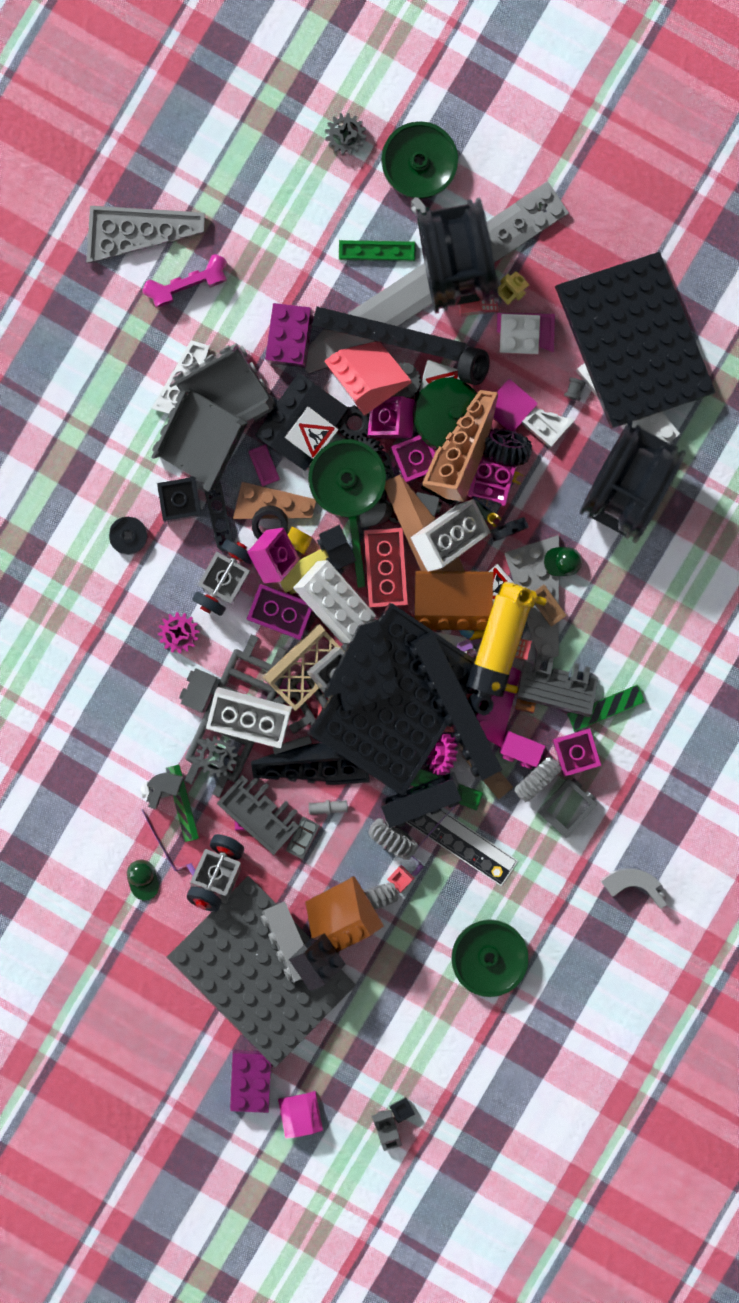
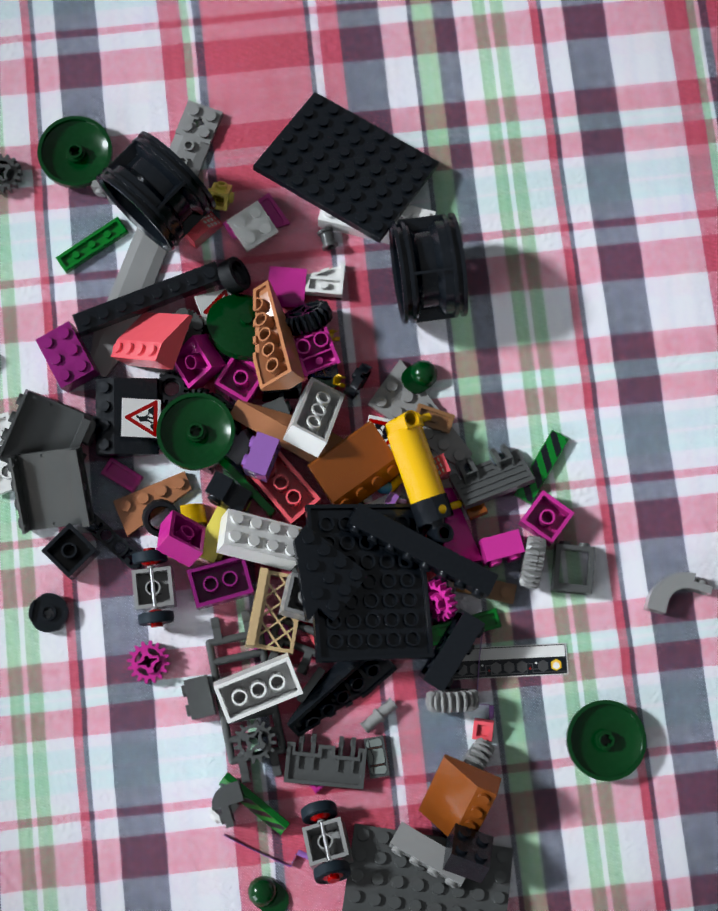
camera: 40 degrees left, 10 degrees down
(383, 538) = (261, 456): none -> medium lavender piece

